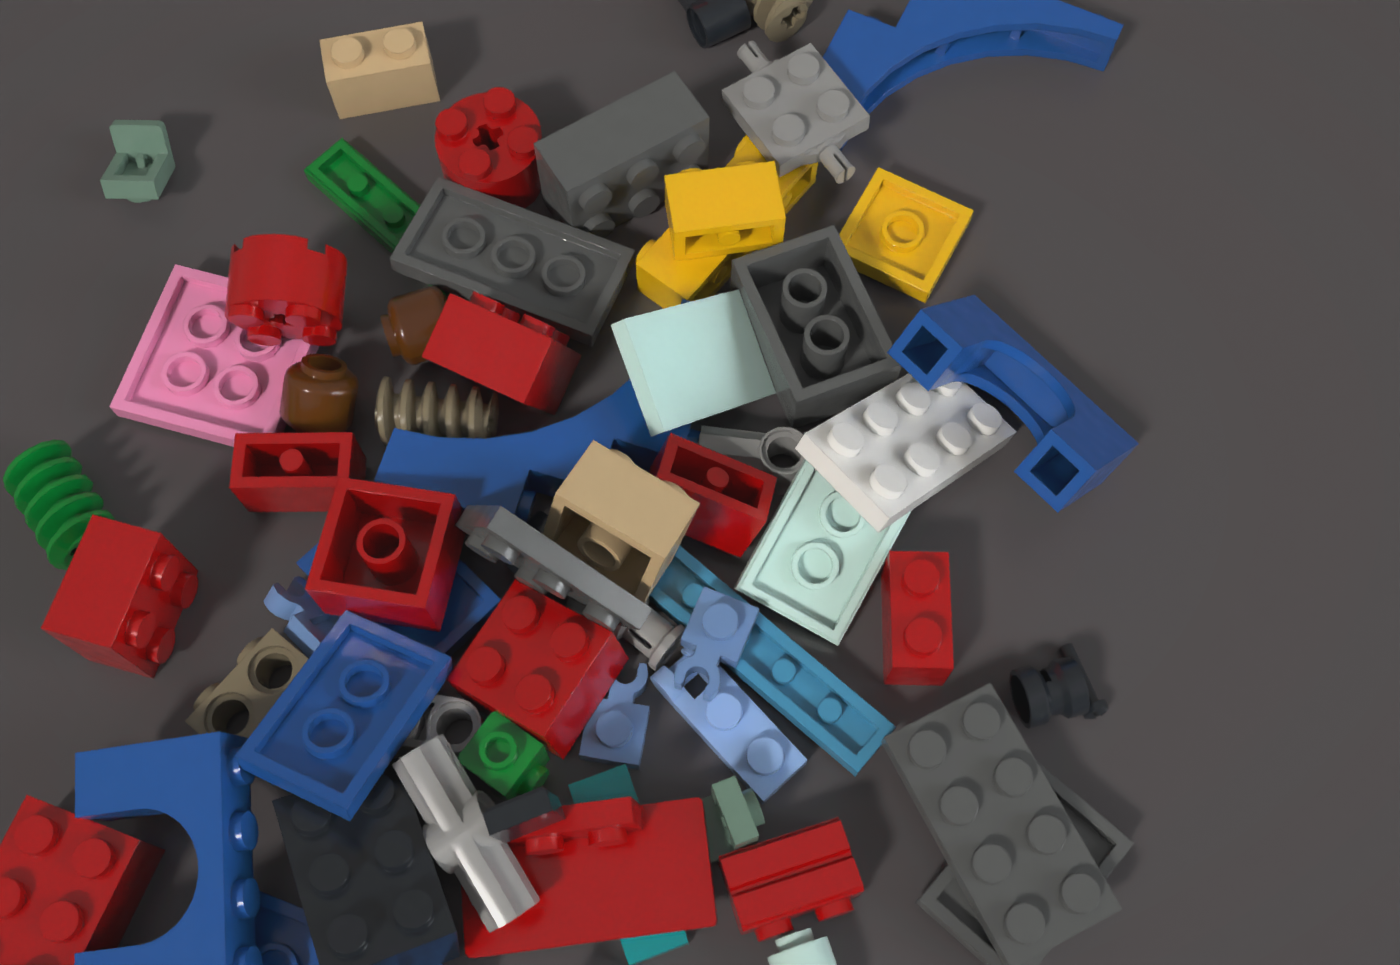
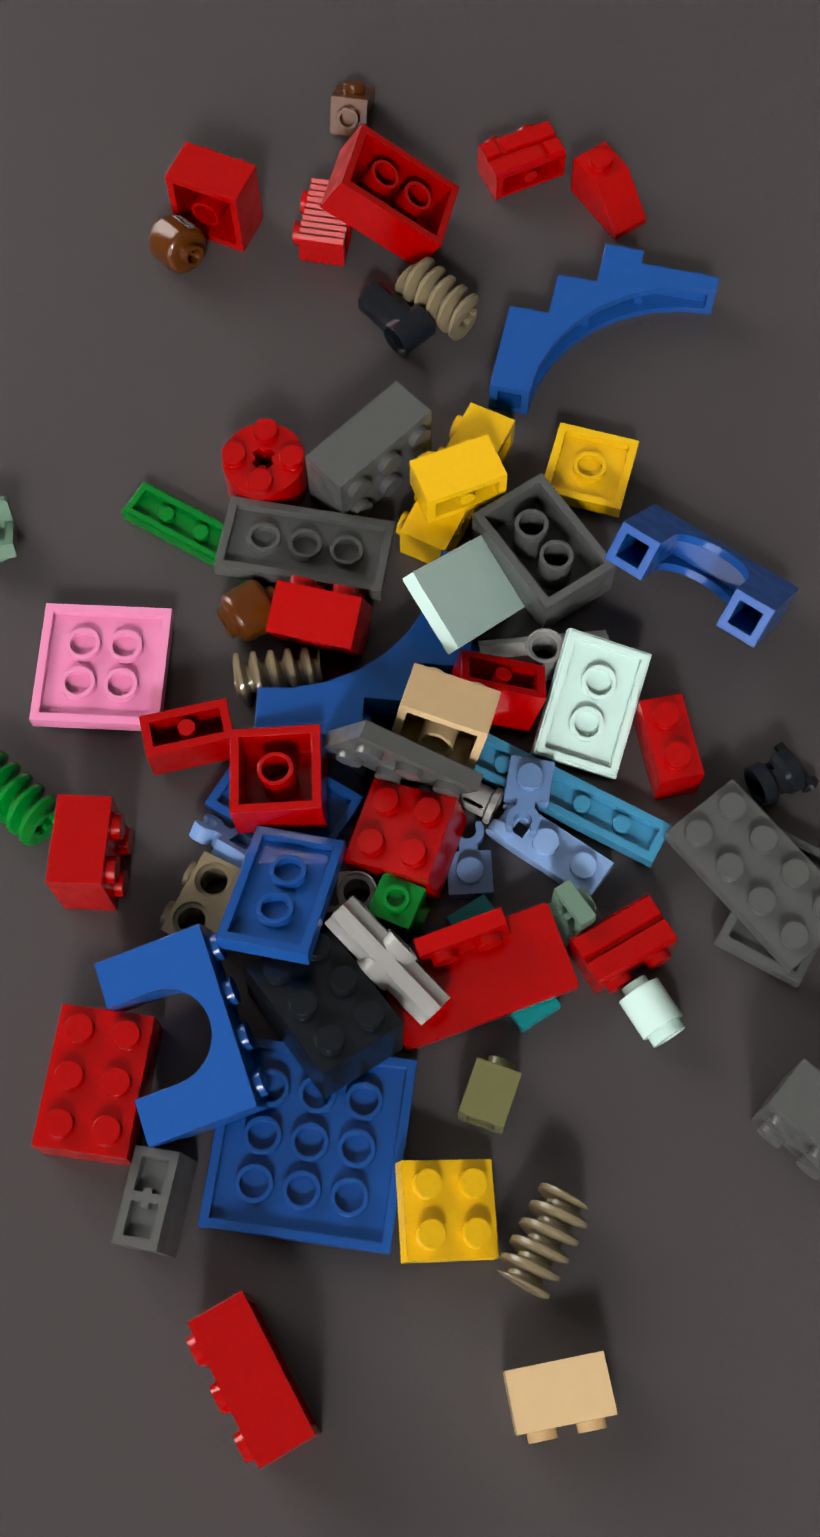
camera: 10 degrees left, 0 degrees up
(286, 290) = (146, 604): red brick -> none
(319, 395) = (187, 677): reddish brown head -> none
(379, 70) = (161, 423): tan brick -> none
(523, 815) = (431, 933): black tile -> none
(796, 110) = (490, 391): light grey plate -> none
(903, 446) = (632, 623): white plate -> none

